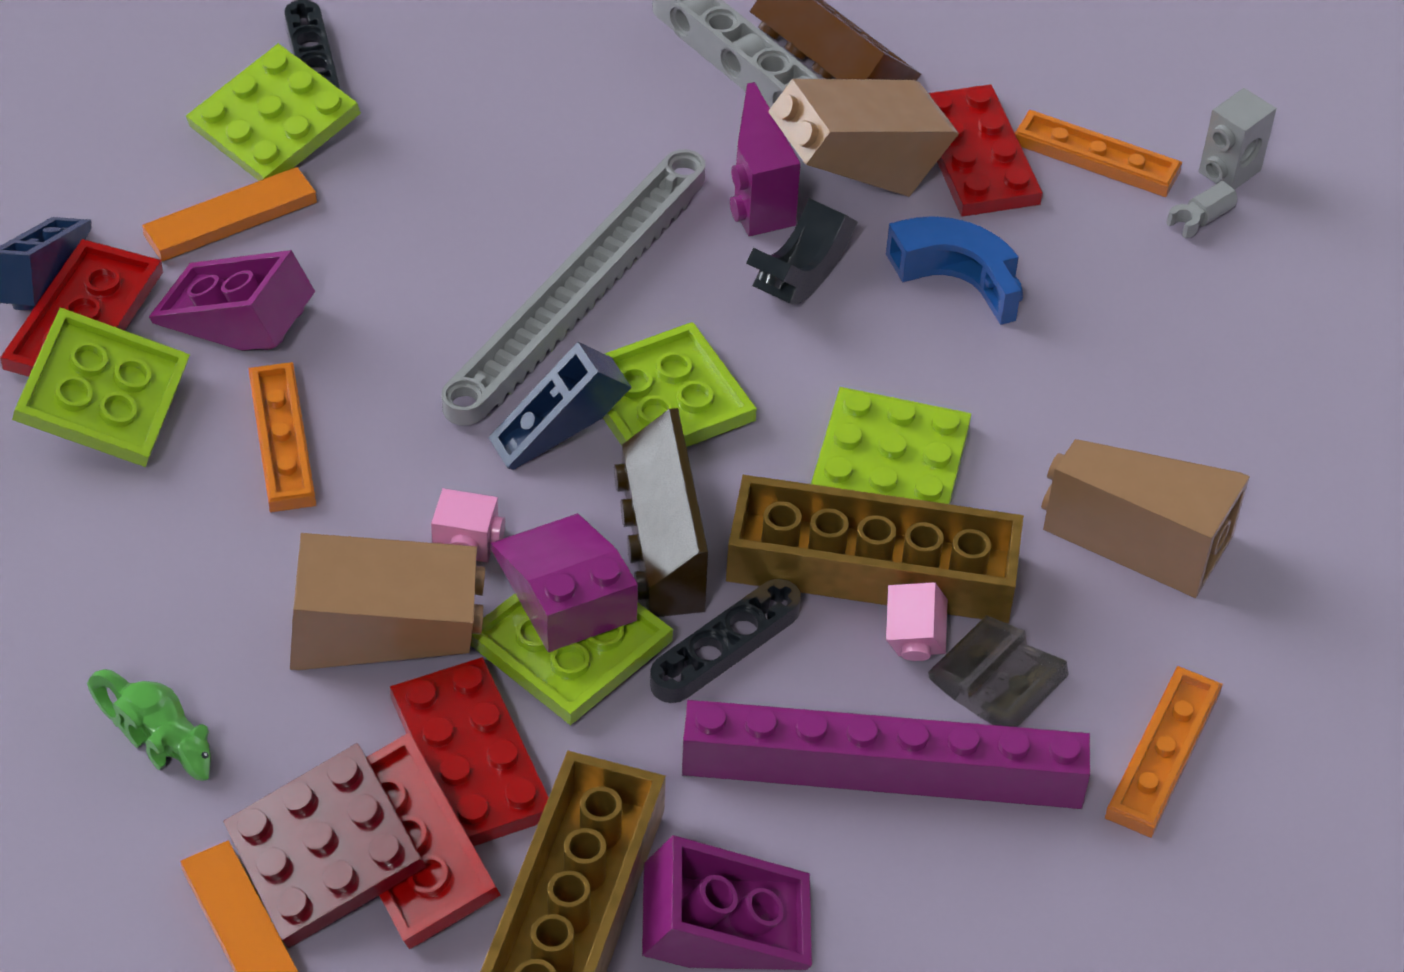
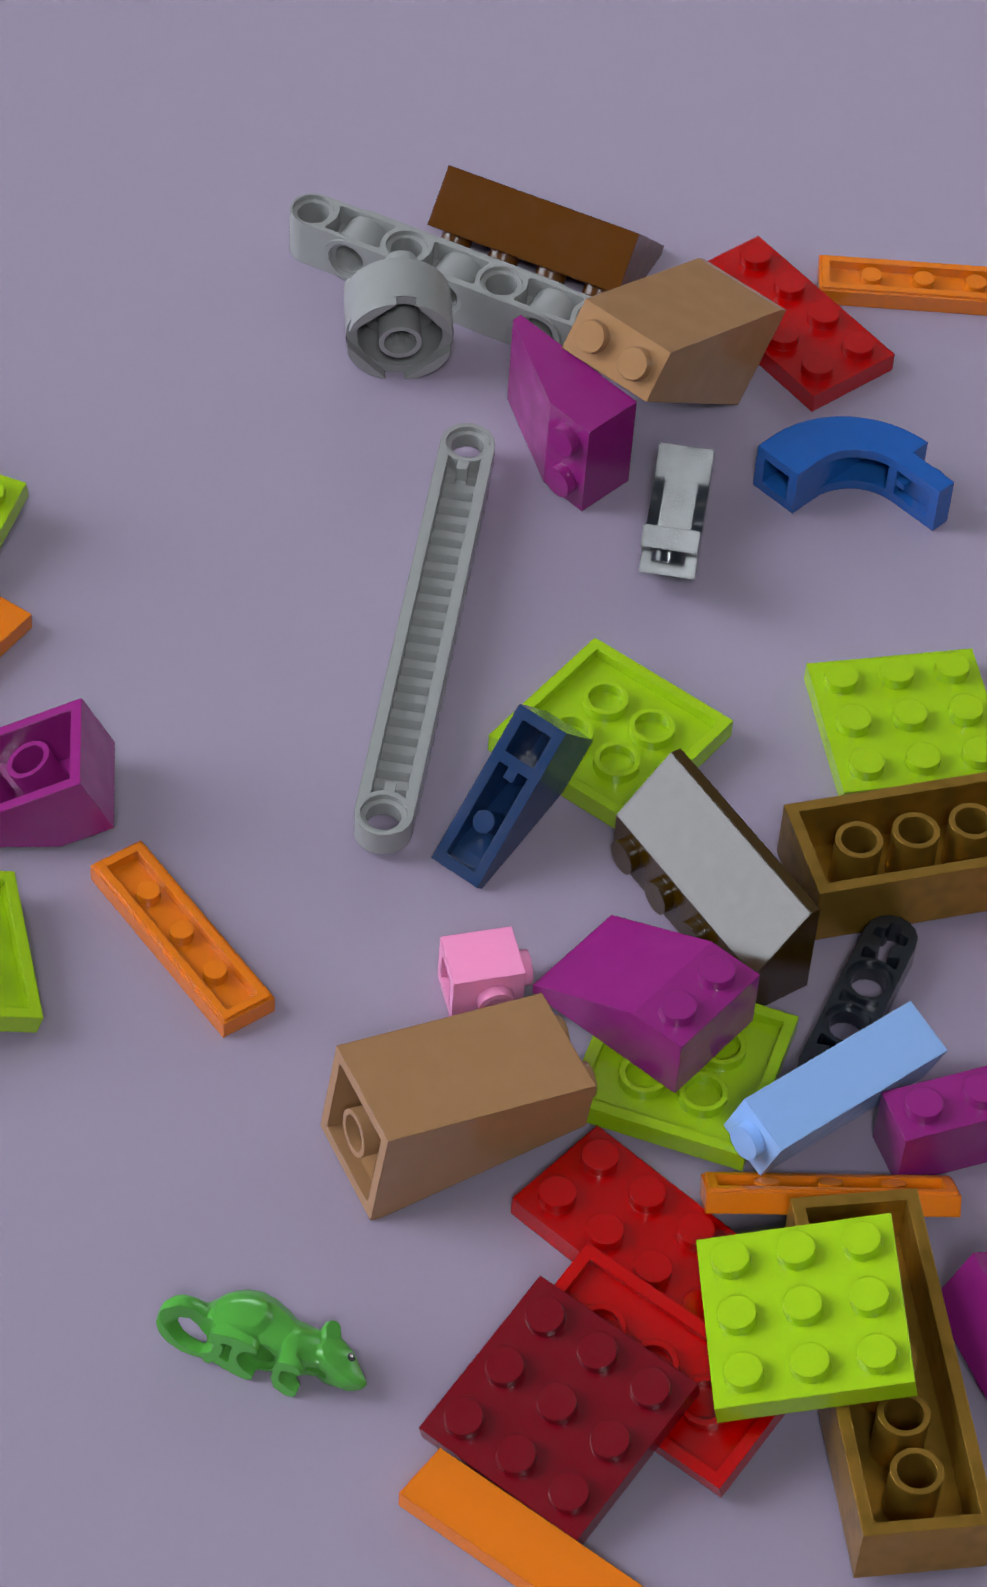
camera: 25 degrees left, 0 degrees up
(520, 838) = (805, 1318): none -> lime plate
(556, 738) = (772, 1191): none -> orange tile
(656, 685) = (833, 1088): none -> light blue brick
(684, 65) = (398, 317): none -> light grey brick

